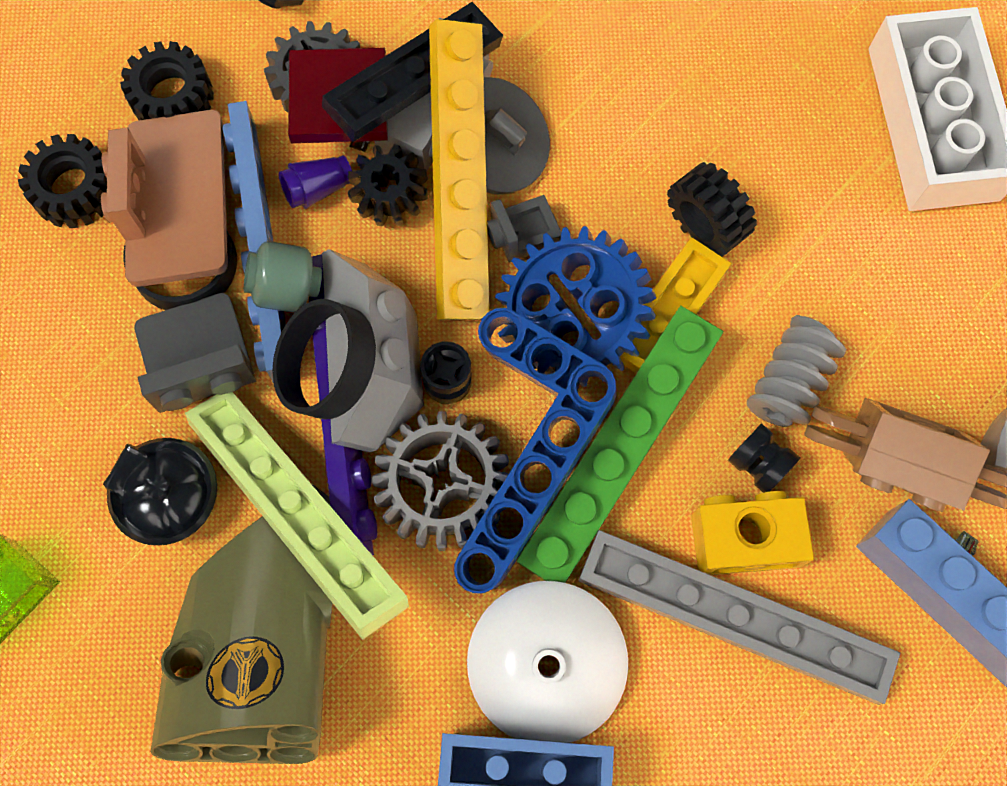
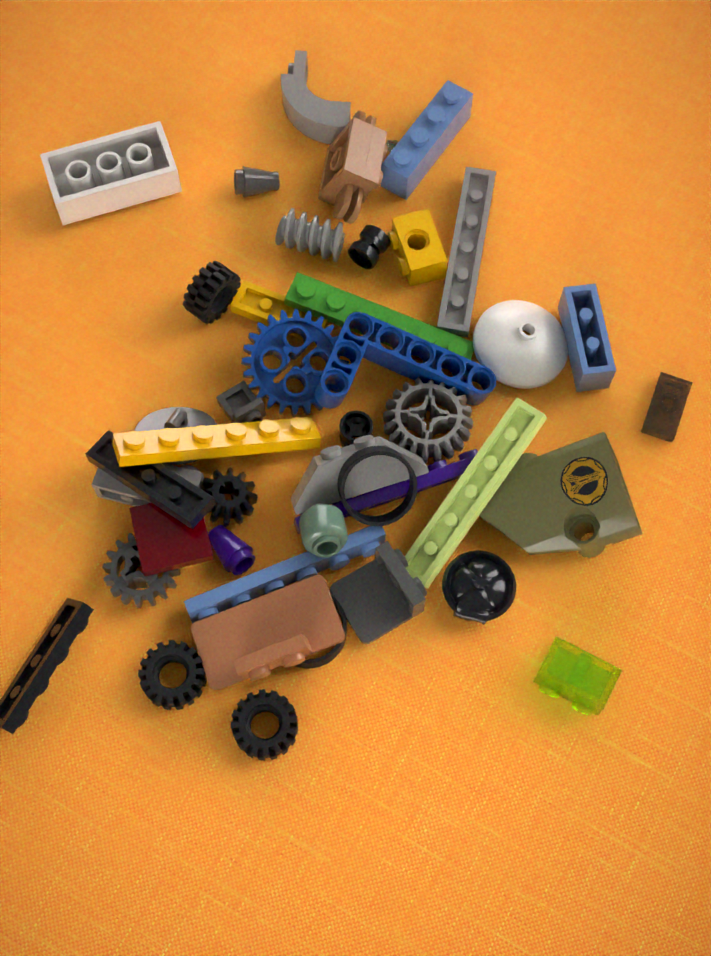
camera: 100 degrees left, 5 degrees down
(911, 312) = (254, 181): none -> dark grey cone

